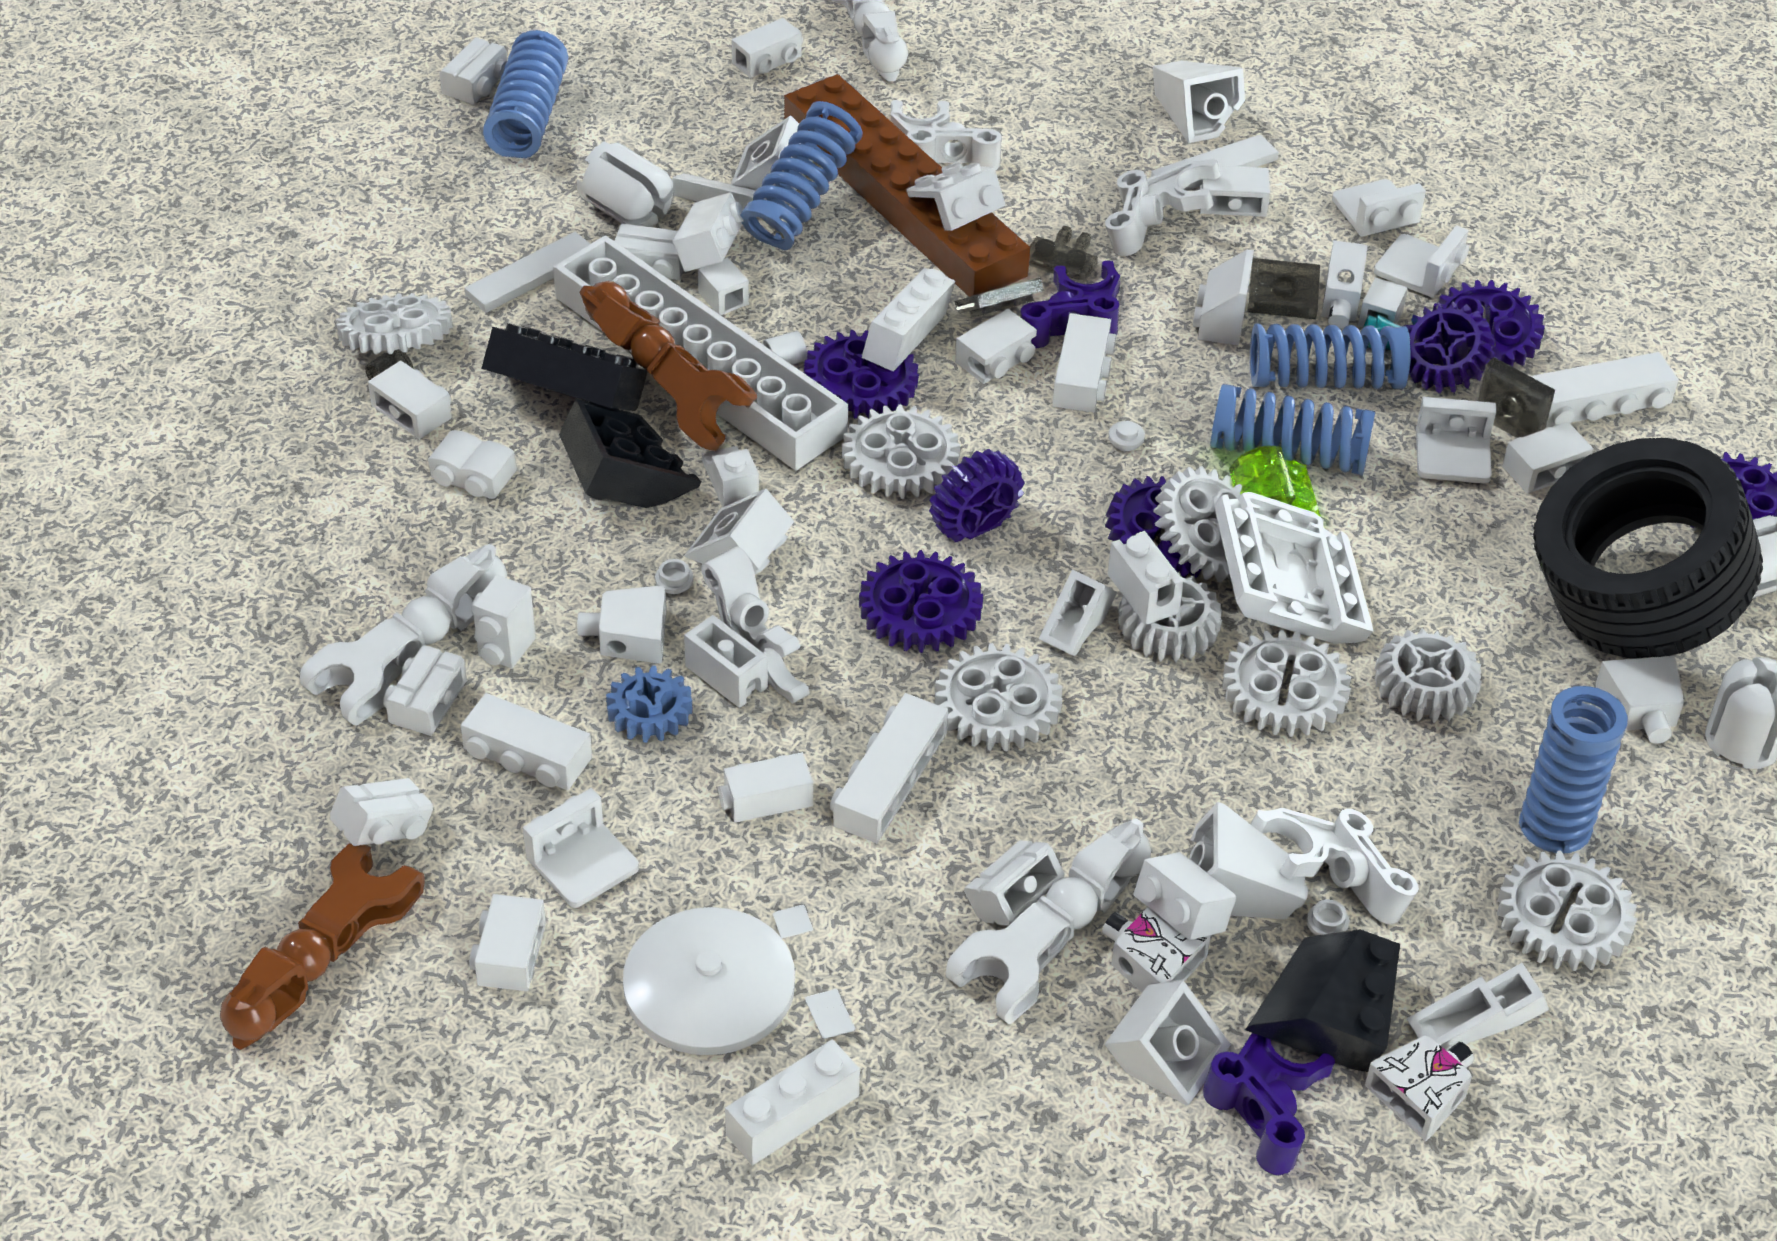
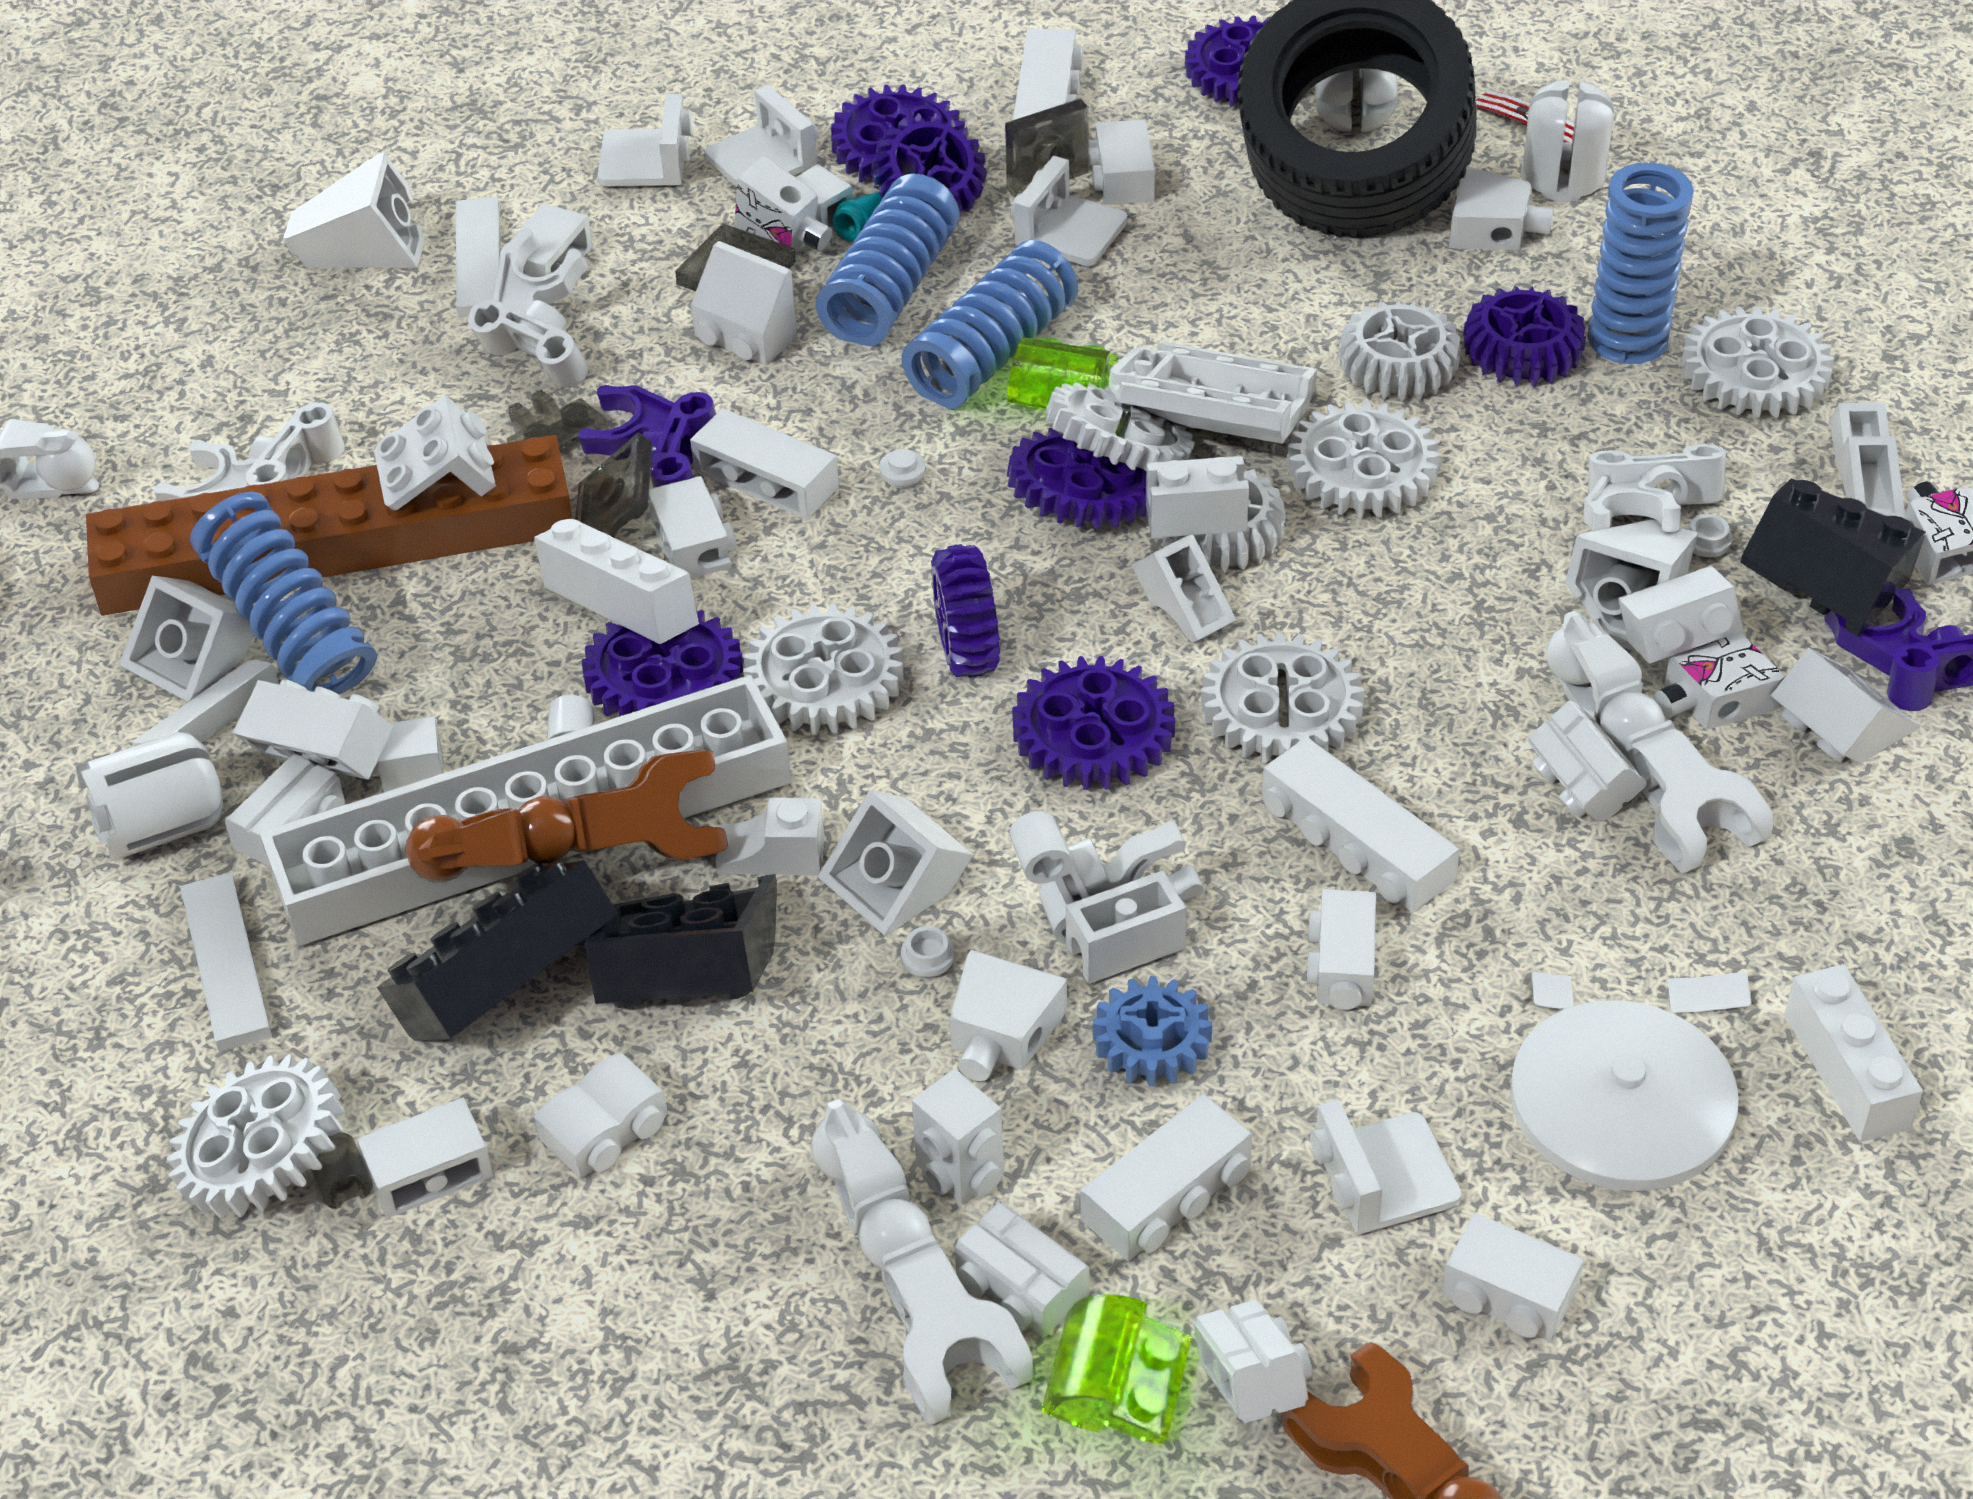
camera: 65 degrees left, 0 degrees up
(363, 754) = (1117, 1369): none -> clear neon green brick
(1493, 747) = (1524, 335): none -> dark purple gear

